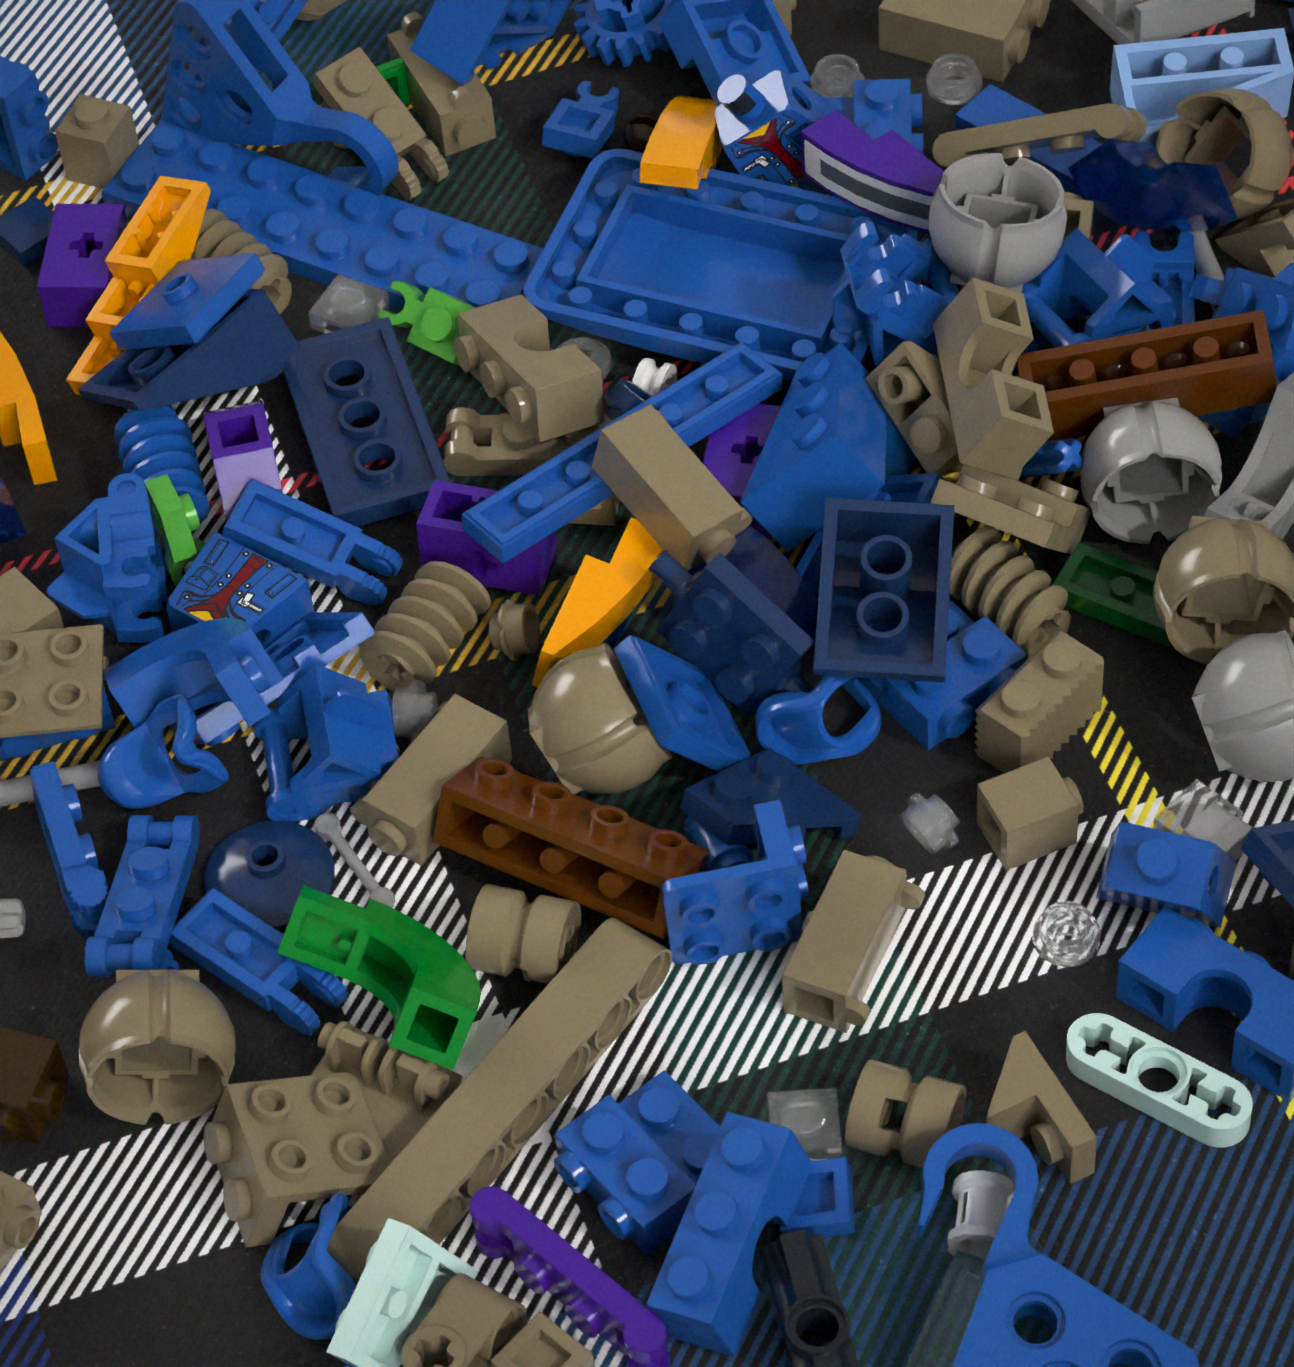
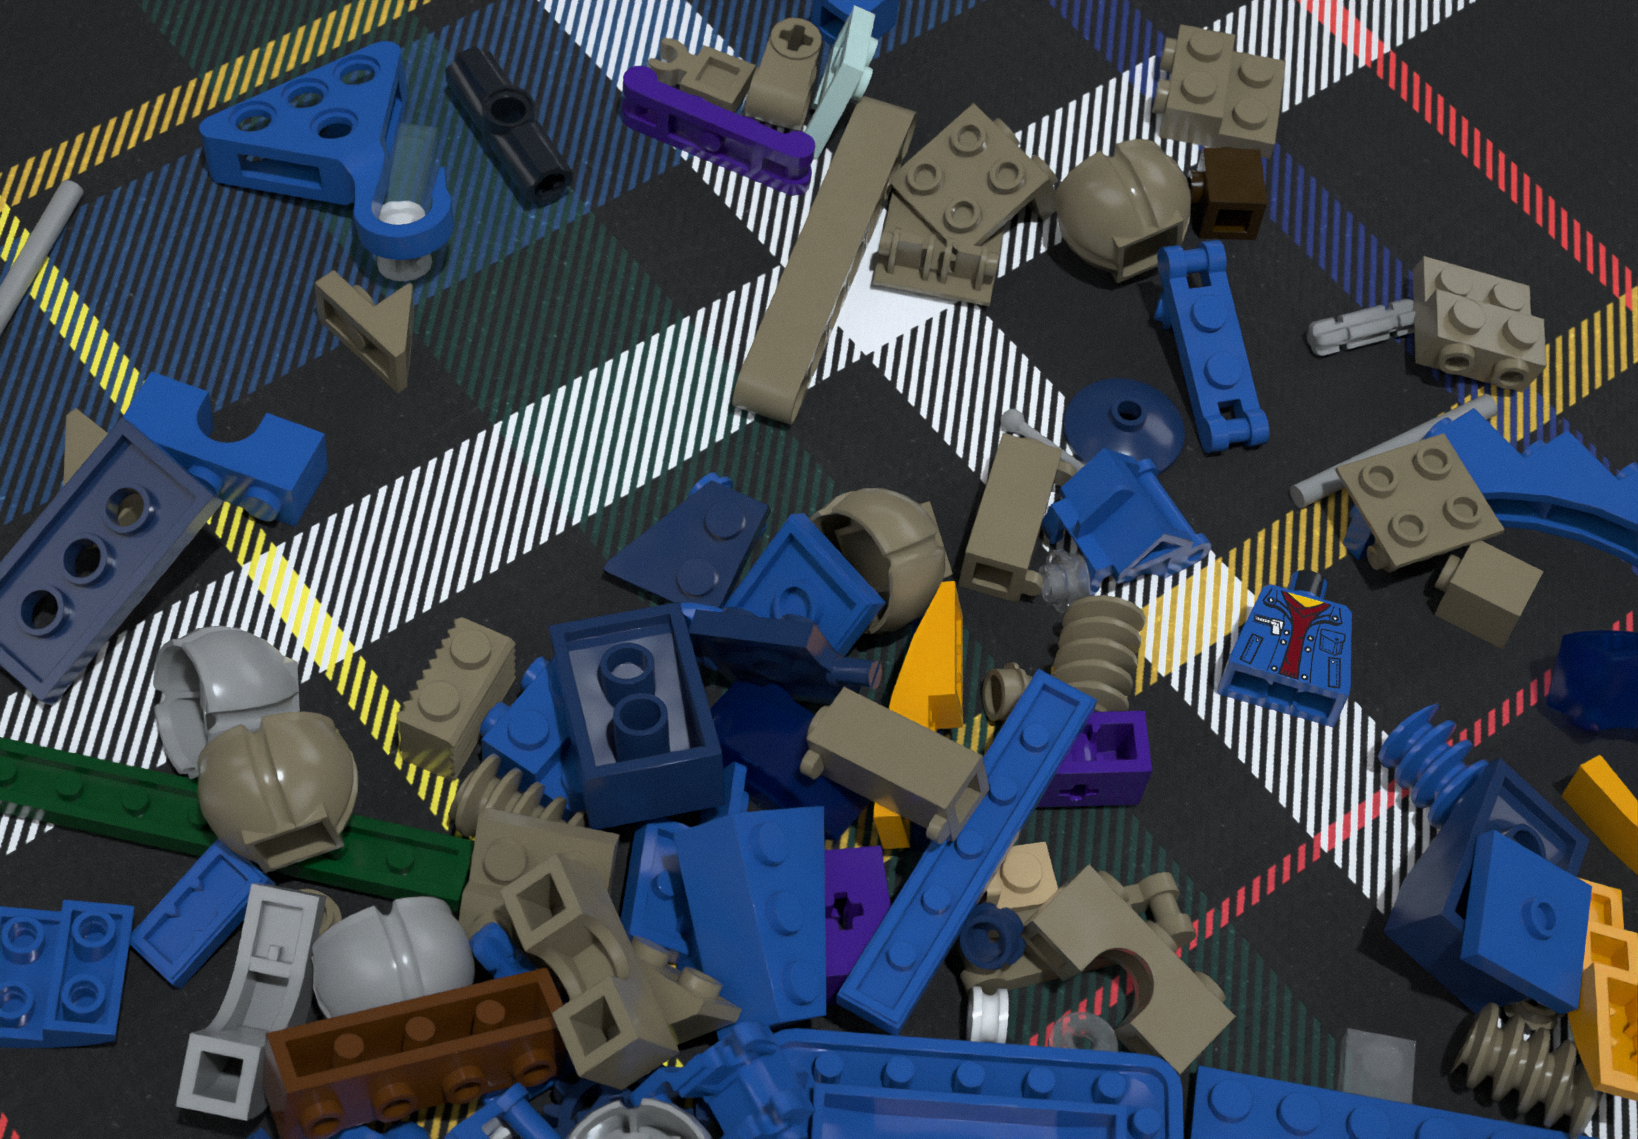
camera: 150 degrees right, 5 degrees up
(72, 855) = (1308, 388): blue hinge -> none
(114, 563) = (1424, 638): blue piece -> none
(140, 772) = (1284, 470): blue piece -> none
(175, 520) = (1391, 687): bright green plate -> none
(202, 663) = (1252, 521): blue arch -> none
(241, 450) = (1368, 804): dark purple slope -> none
(245, 956) = (1089, 333): blue hinge -> none
(309, 641) = (1213, 582): blue wing -> none
(311, 542) = (1251, 723): blue hinge -> none
(318, 1286) = (906, 89): blue piece -> none
(343, 450) = (1275, 947): dark blue plate -> none
(395, 959) = (921, 307): green arch -> none
(431, 318) = (1263, 1052): bright green plate -> none
(514, 934) = (867, 380): dark tan wheel -> none
(564, 842) = (838, 455): reddish brown brick -> none
(638, 1158) = (690, 241): blue plate -> none
(707, 1276) = (599, 163): blue arch -> none
(741, 904) = (676, 418): blue bracket -> none
(812, 1118) = (571, 298): clear plate -> none
(825, 1201) = (542, 229): blue plate -> none
(847, 940) = (578, 440): dark tan brick -> none
(930, 822) = (535, 567): clear plate -> none
(931, 1112) = (483, 293): dark tan wheel -> none
(1028, 812) = (442, 587): dark tan brick -> none
(1071, 920) = (383, 482): clear plate -> none
(1162, 869) = (300, 524): blue torso -> none
(1168, 1107) = (260, 367): light aqua beam -> none
(1205, 816) = (277, 619): clear piece -> none

